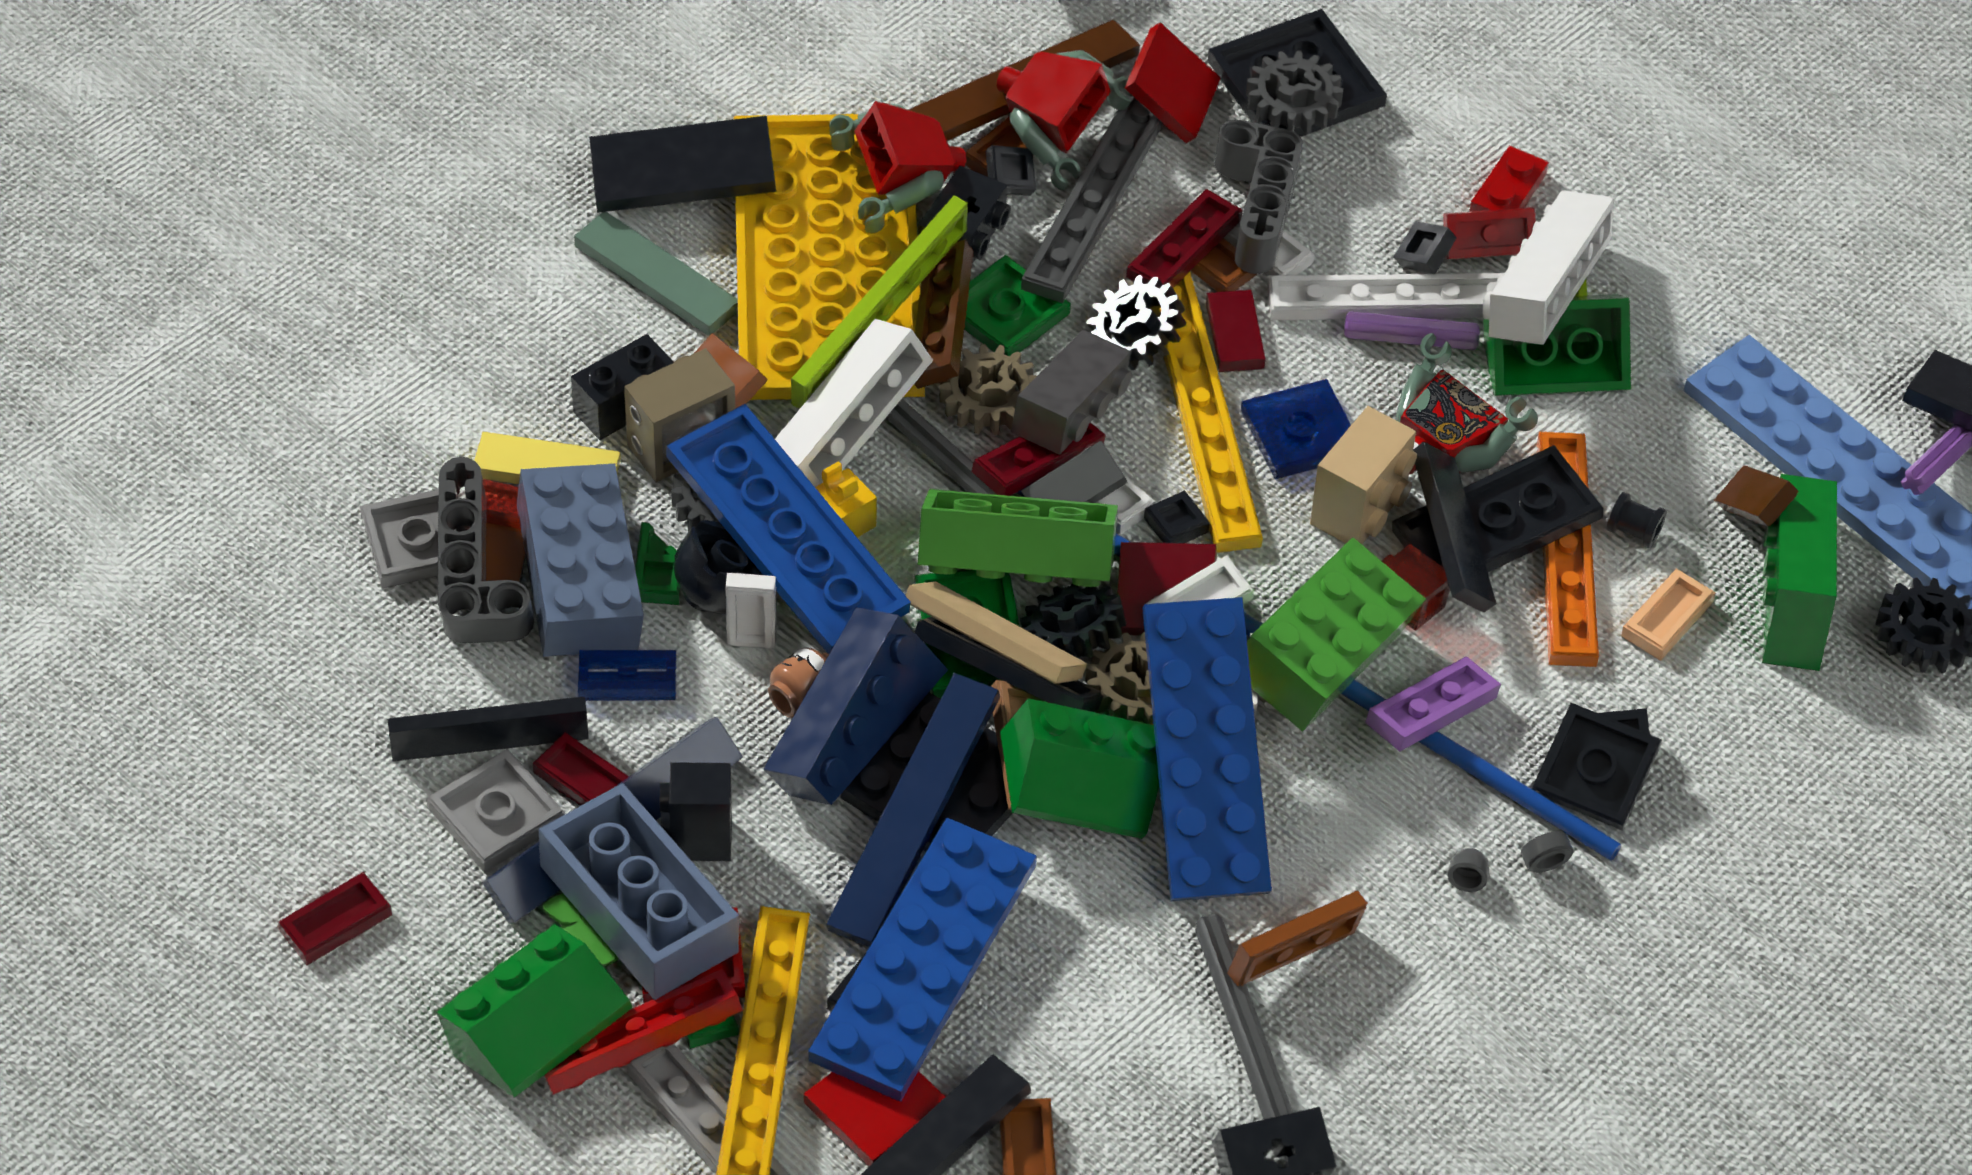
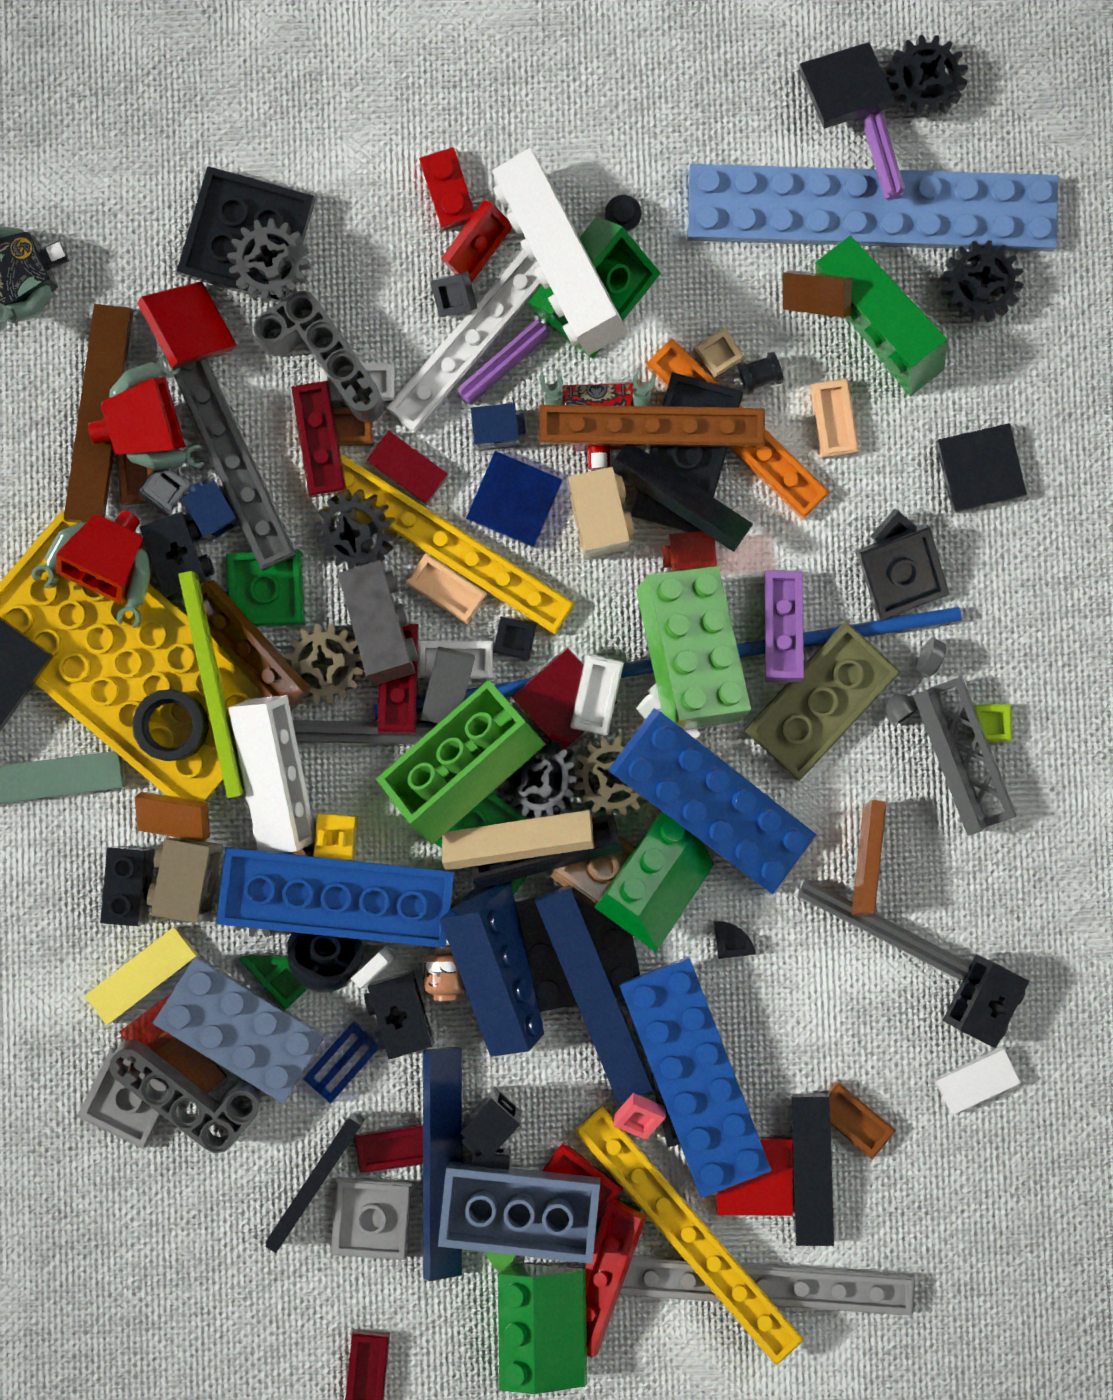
camera: 45 degrees left, 35 degrees up
(724, 677) = (415, 1030): none -> black brick
(806, 279) = (141, 725): none -> black tyre
(833, 944) = (639, 1116): none -> coral plate
(1030, 213) = (210, 509): none -> dark blue brick
(1088, 904) = (731, 941): none -> black tile
(1161, 437) = (446, 588): none -> light nougat tile
(1348, 360) = (497, 426): none -> dark blue brick
(1401, 797) = (815, 713): none -> olive tile
(1473, 951) = (951, 760): none -> dark grey fence
(1489, 457) = (651, 426): none -> dark orange tile
(1546, 961) = (995, 721): none -> lime tile
(1613, 478) = (719, 353): none -> tan tile
(1647, 322) = (624, 211): none -> black plate
(1768, 763) = (981, 468): none -> black tile

